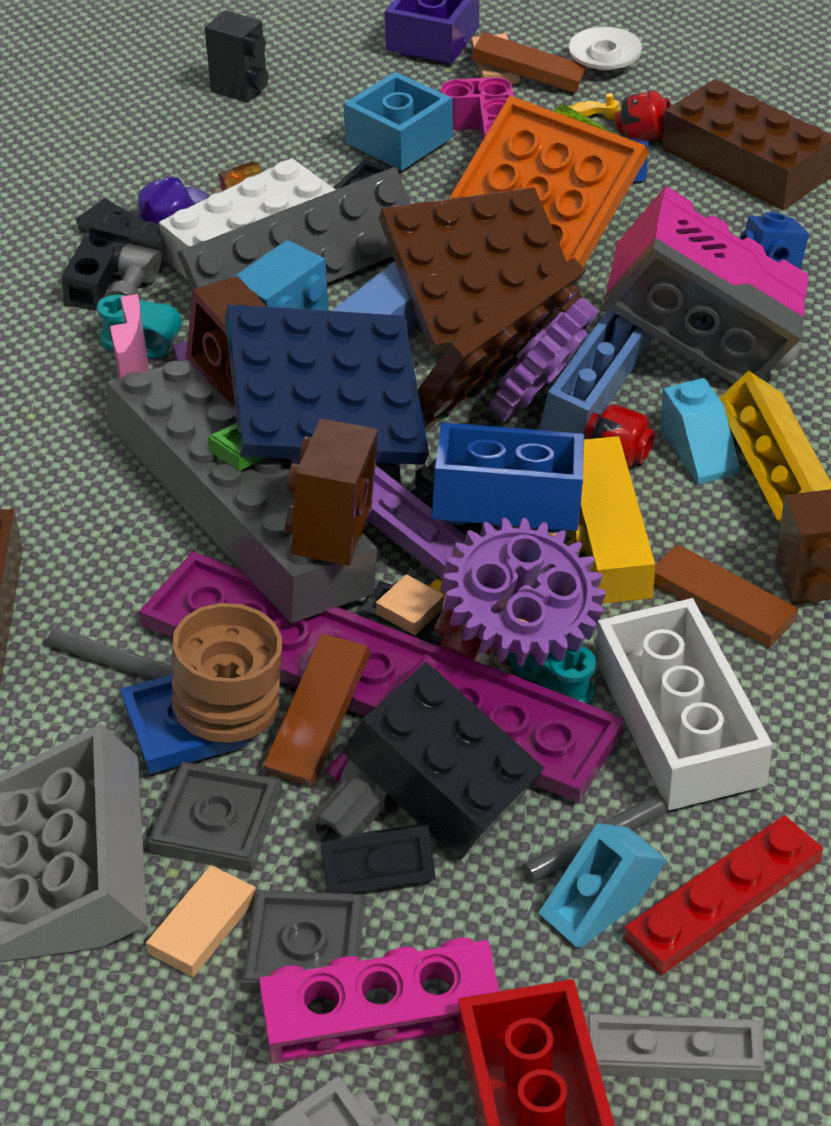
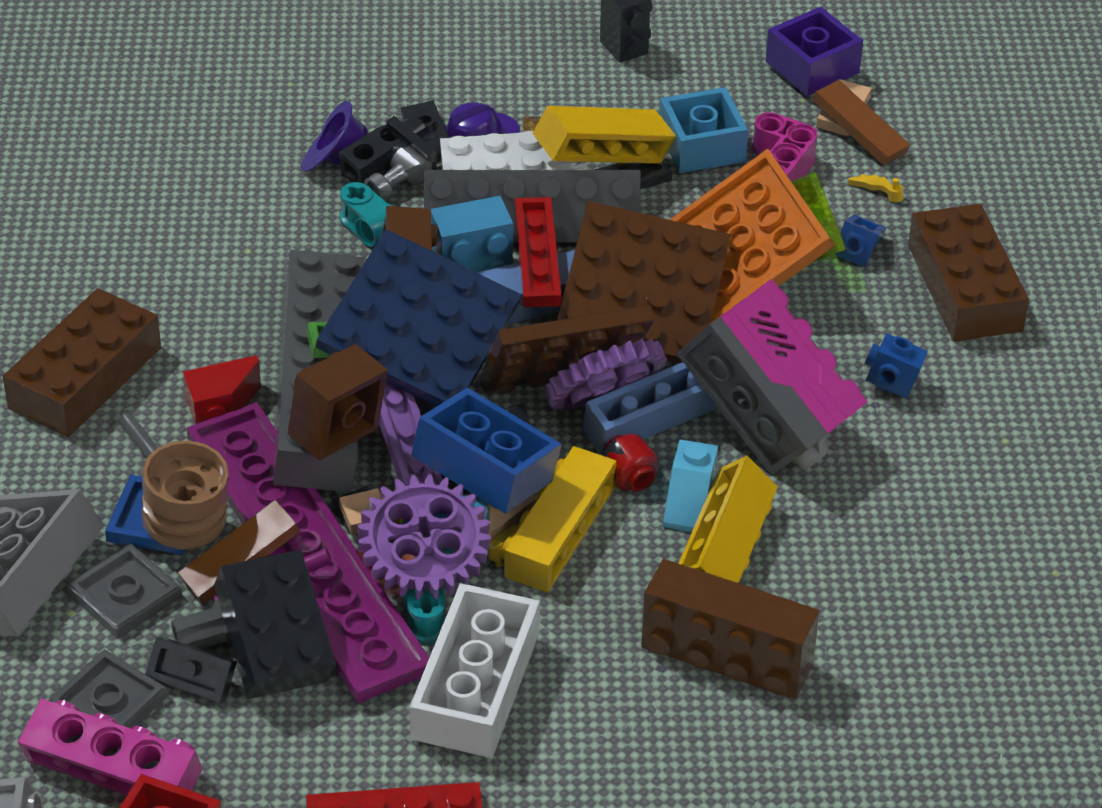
camera: 30 degrees right, 0 degrees up
(36, 269) = (337, 134): none -> dark purple piece
(129, 339) = (336, 229): bright pink slope -> none
(135, 559) = (221, 387): none -> red slope
(201, 921) = (57, 651): light nougat tile -> none
(326, 151) = (603, 134): none -> yellow brick
(363, 278) = (537, 252): none -> red plate
(564, 853) = (345, 731): dark grey bar -> none
(602, 883) = (316, 758): medium azure slope -> none
(605, 48) = (937, 135): white dish -> none
(642, 116) = (899, 206): red head -> none
(724, 595) = (594, 615): dark orange tile -> none

